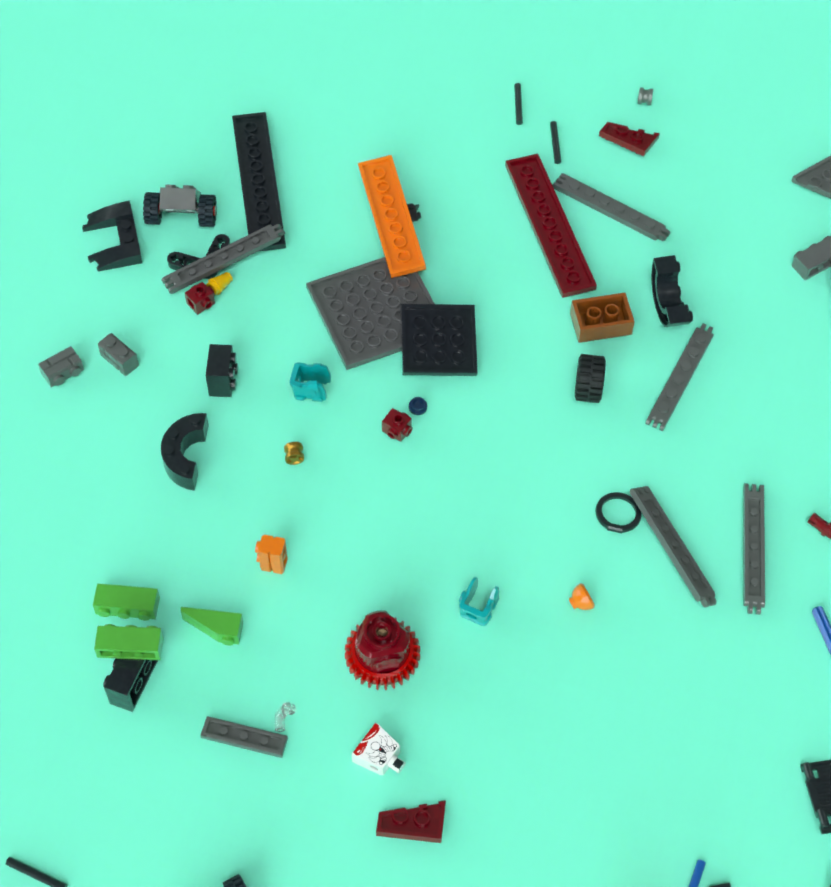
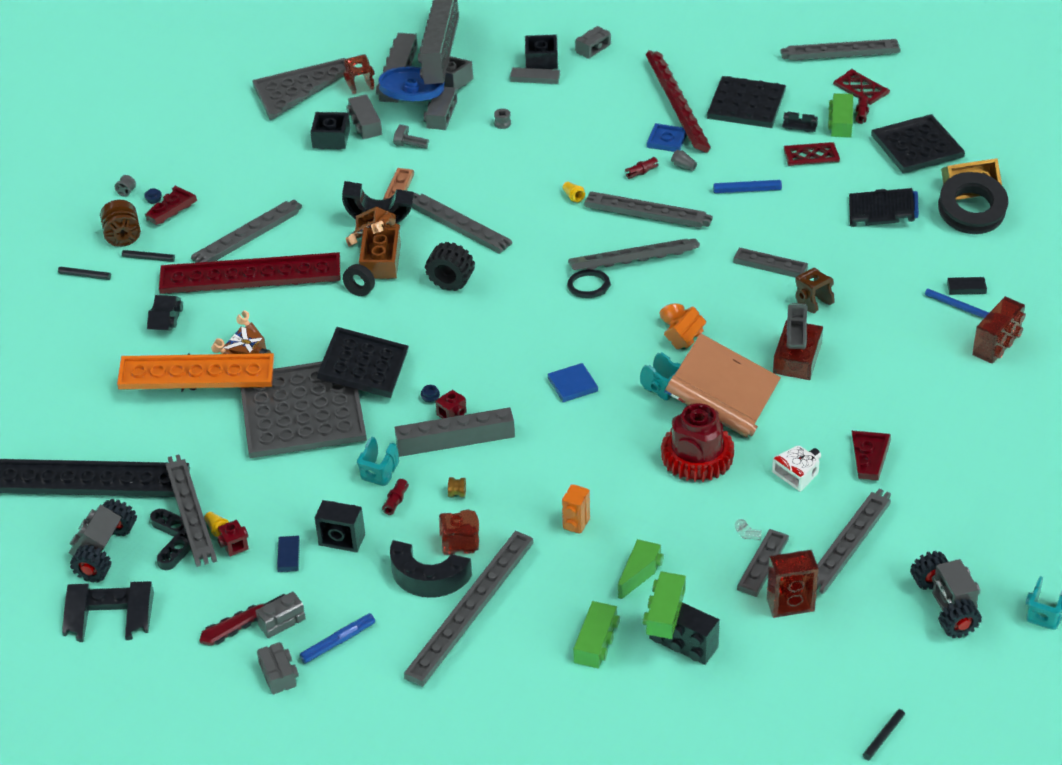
camera: 75 degrees left, 15 degrees down
(103, 403) = (337, 638): none -> blue axle
(109, 324) = (228, 626): none -> dark red sword
(150, 495) = (468, 609): none -> dark grey plate
(193, 758) = (792, 583): none -> clear red brick
(194, 344) = (288, 553): none -> dark blue tile
(231, 466) = (459, 532): none -> clear red piece
(275, 407) = (395, 496): none -> dark red pin
(284, 815) = (851, 538): none -> dark grey hinge
(365, 436) = (454, 431): none -> dark grey brick
(443, 245) = (244, 341): none -> torso
(463, 524) = (572, 382): none -> blue tile
(472, 174) = (164, 312): none -> black brick
(474, 660) = (724, 382): none -> nougat door
(555, 309) = (364, 273): none -> black tyre
(557, 729) = (798, 362): none -> clear red brick
(559, 715) = (797, 326): none -> dark grey animal
(560, 612) = (685, 328): none -> orange brick
(581, 105) = (120, 223): none -> reddish brown wheel
(639, 302) = (373, 218): none -> dark orange torso
(640, 121) = (153, 196): none -> dark blue plate
(660, 737) = (818, 287): none -> reddish brown piece
(704, 686) = (770, 262): none -> dark grey tile
(721, 312) = (400, 180): none -> nougat tile
(761, 470) = (575, 192): none -> yellow cone
(782, 231) = (330, 130): none -> black brick
(799, 296) = (401, 137): none -> dark grey piece

